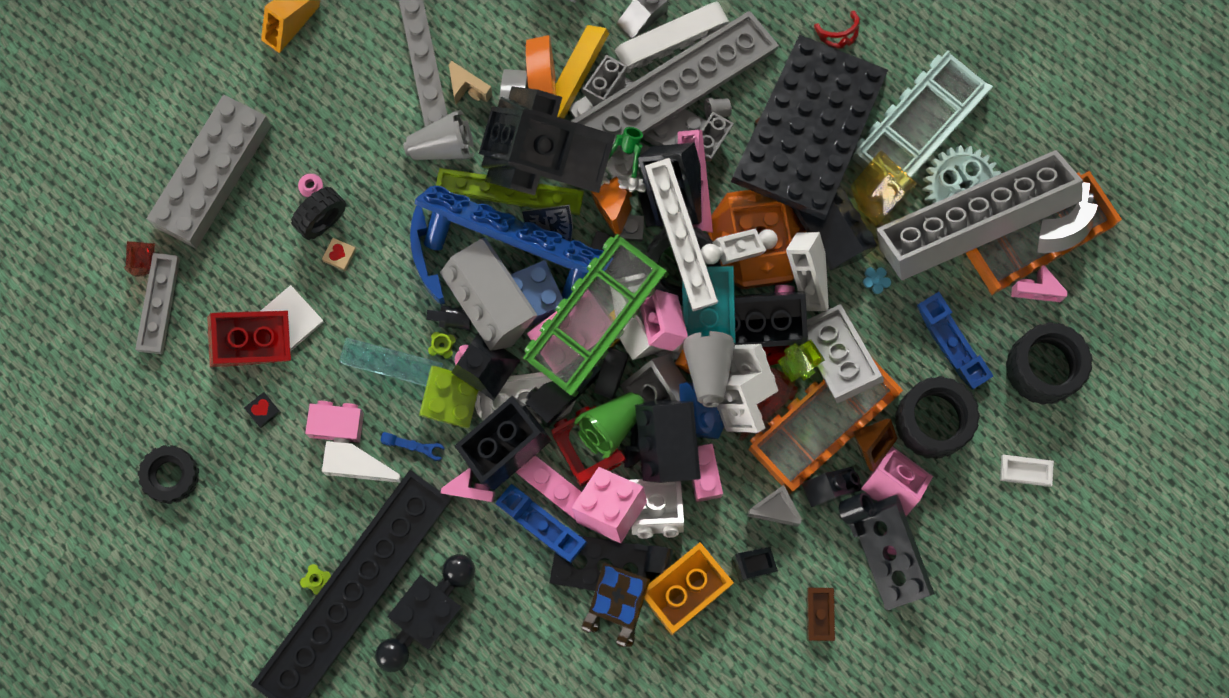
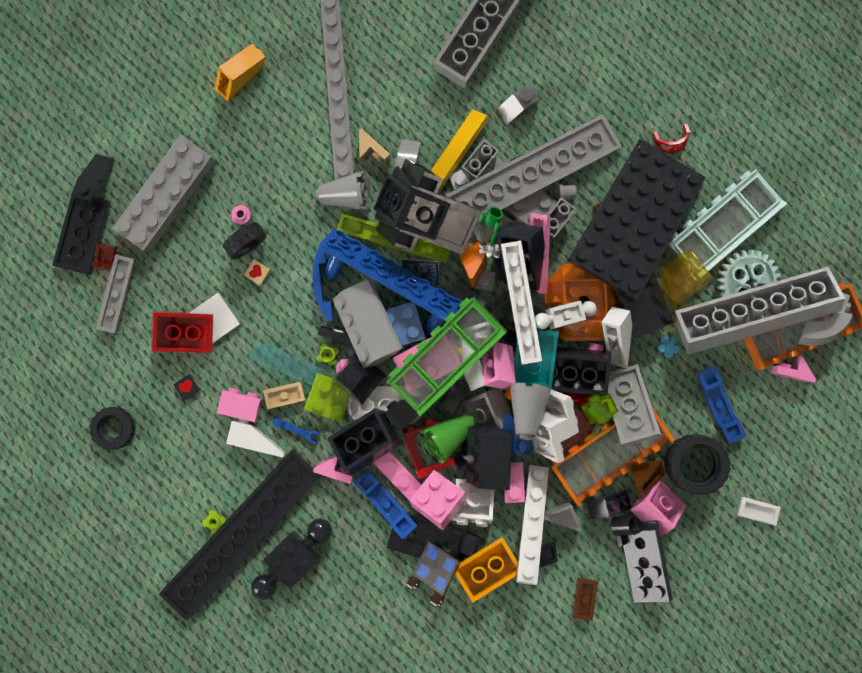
camera: 15 degrees right, 10 degrees up
(104, 233) = (79, 237): none -> black plate
(115, 168) = (92, 182): none -> black slope
(391, 403) = (284, 395): none -> tan plate
(540, 64) = (431, 141): orange slope -> none
(671, 36) = (538, 127): white beam -> none
(737, 522) = (532, 525): none -> white plate
(1069, 343) = (814, 433): black tyre -> none

